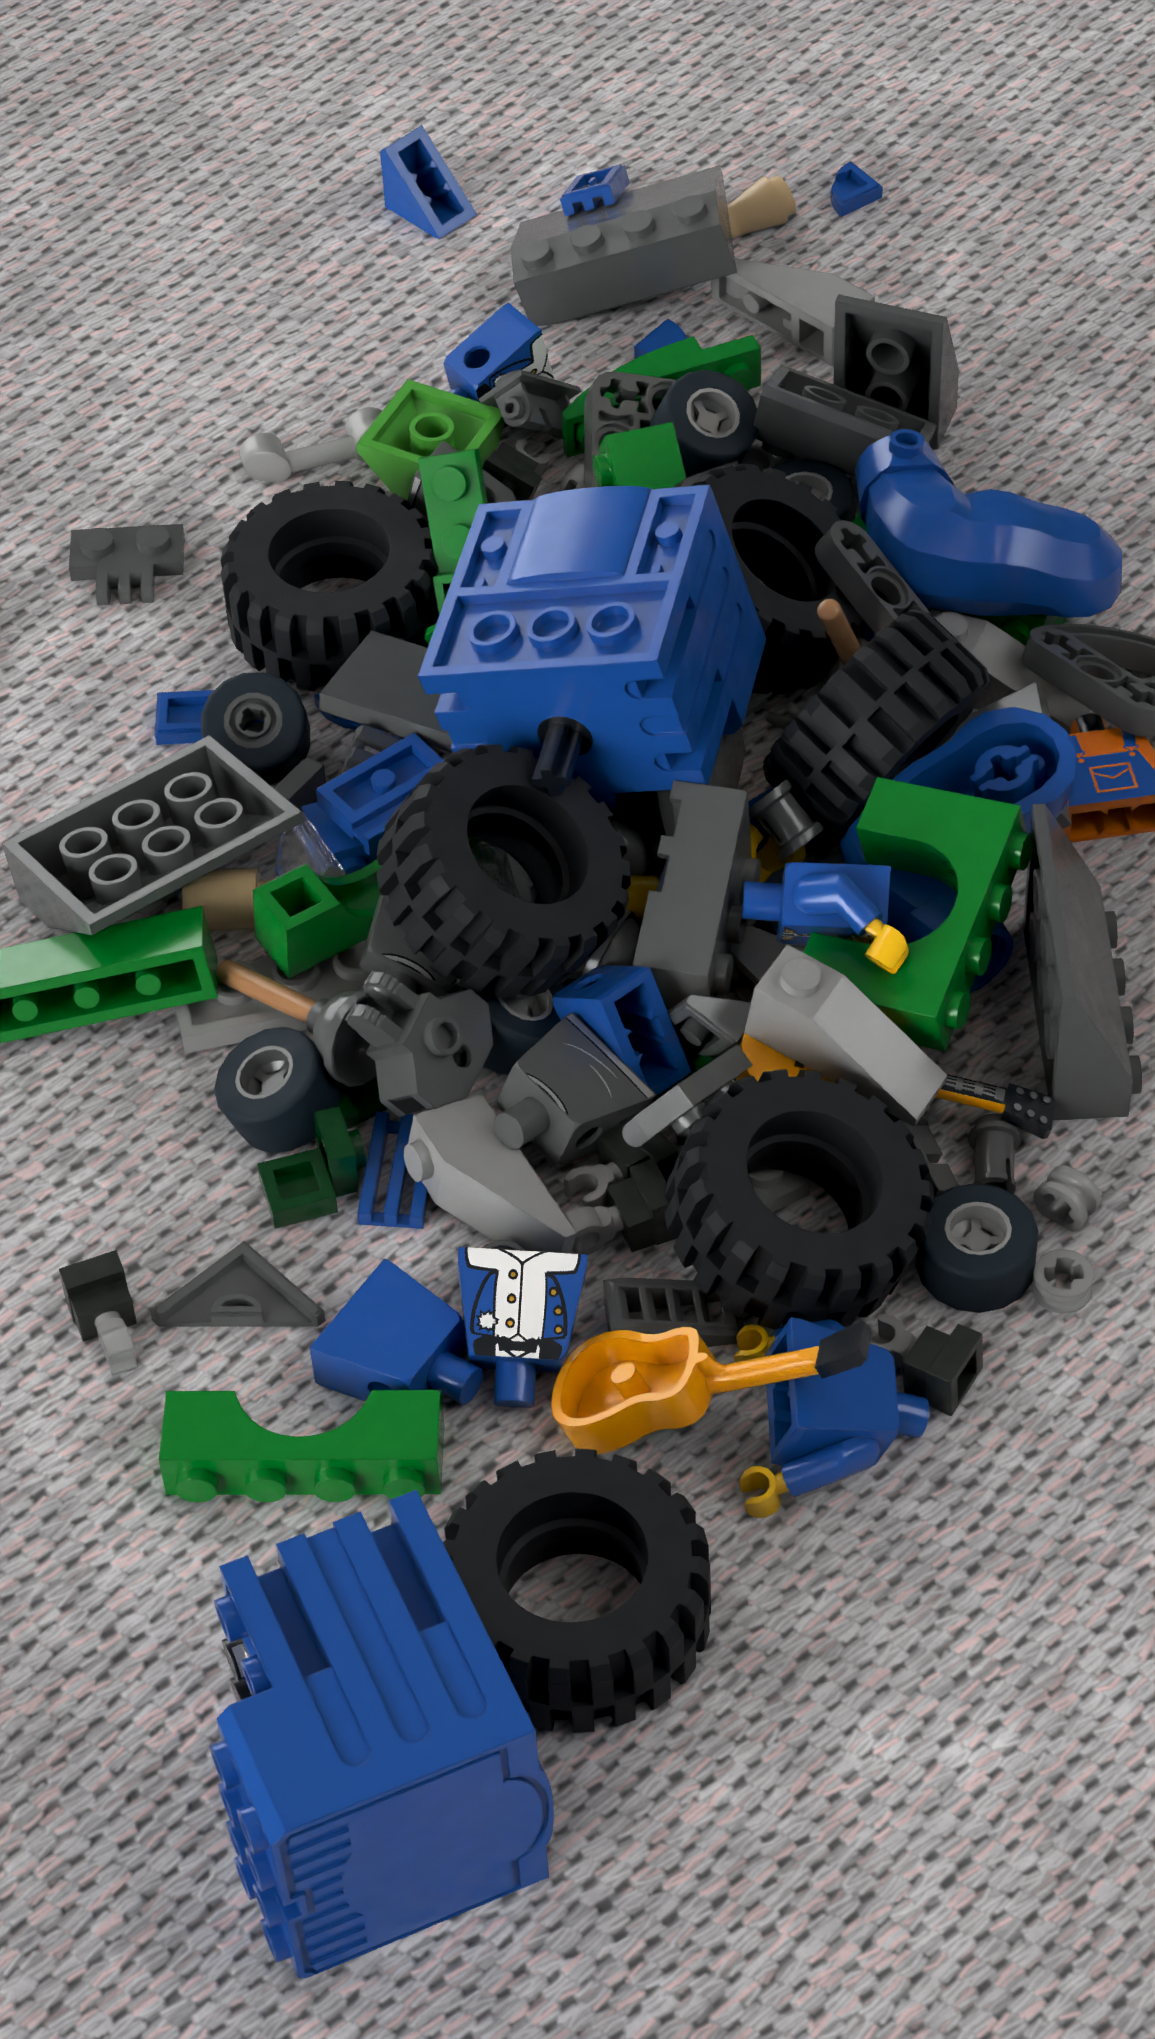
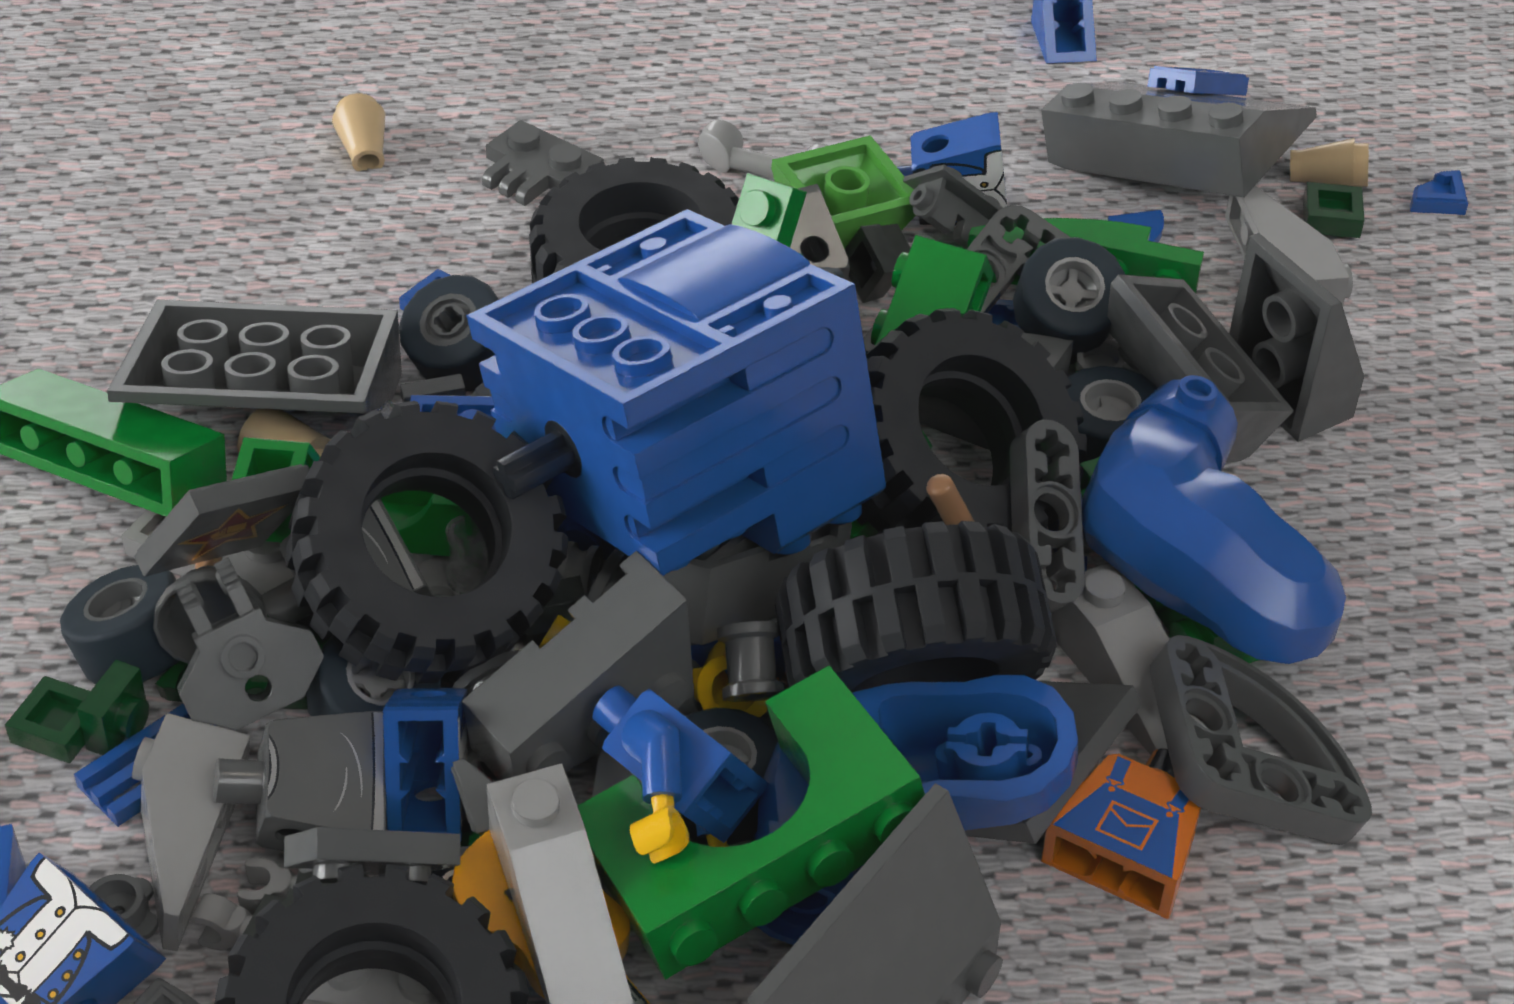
camera: 35 degrees right, 5 degrees down
(323, 951) = (222, 520): none -> dark grey tile
(793, 244) = (1334, 209): none -> dark green plate

